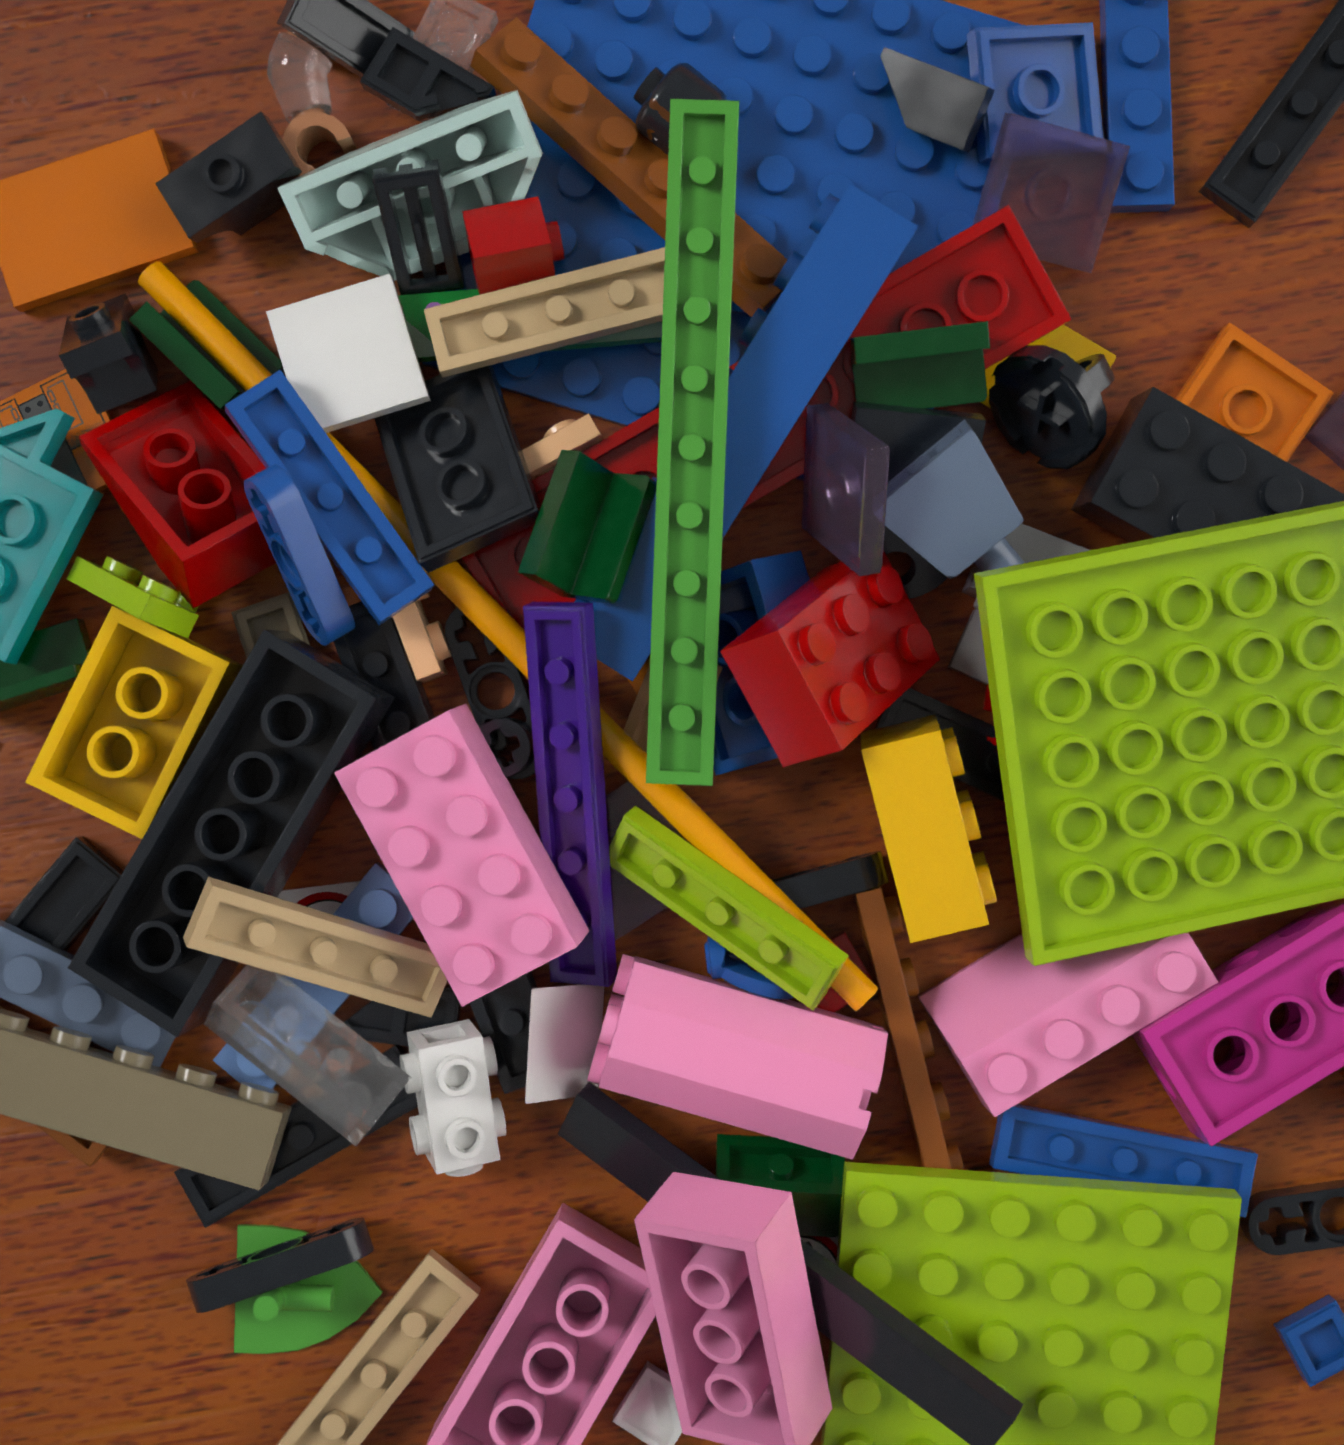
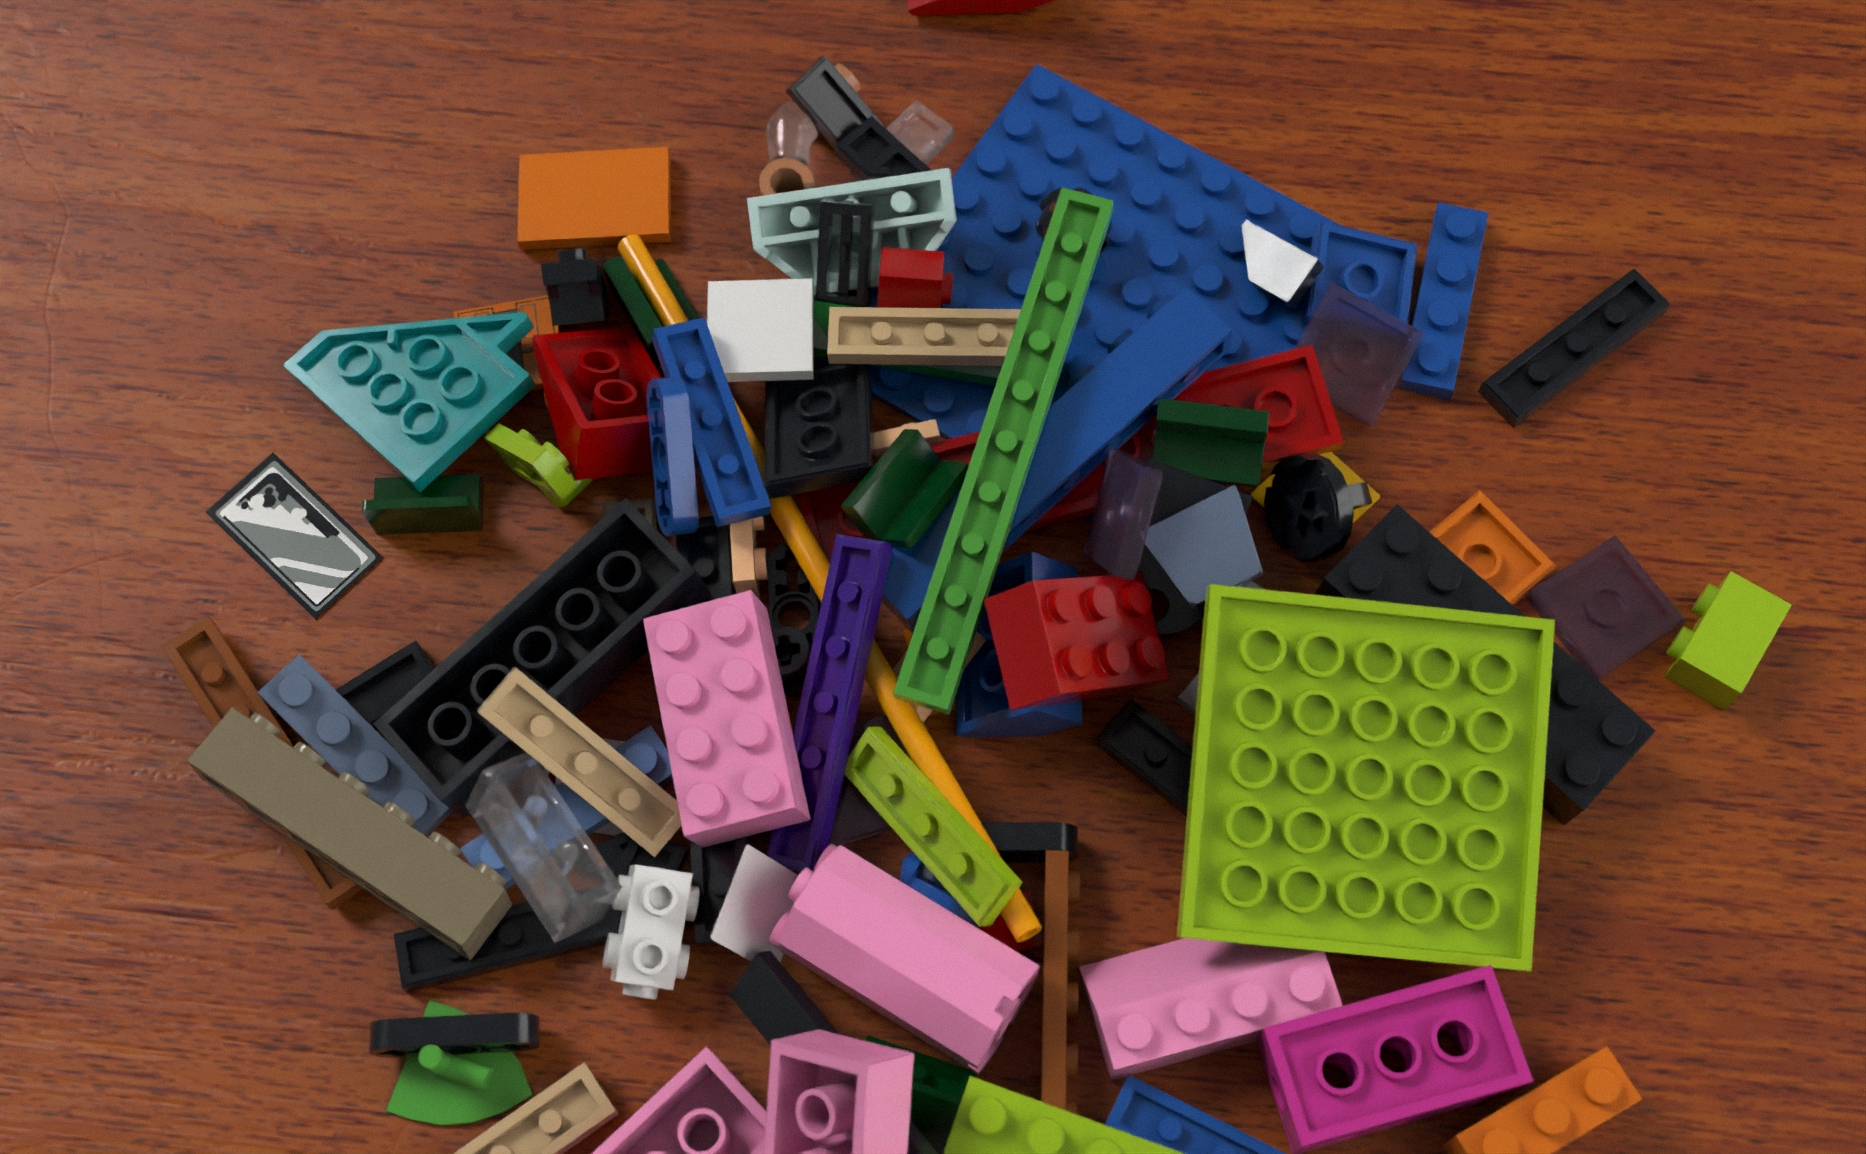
camera: 15 degrees right, 20 degrees down
(131, 721) = (491, 549): yellow brick -> none
(231, 181) = (713, 191): black brick -> none
(611, 147) = (1010, 234): dark orange plate -> none
(928, 827) = (1120, 802): yellow brick -> none

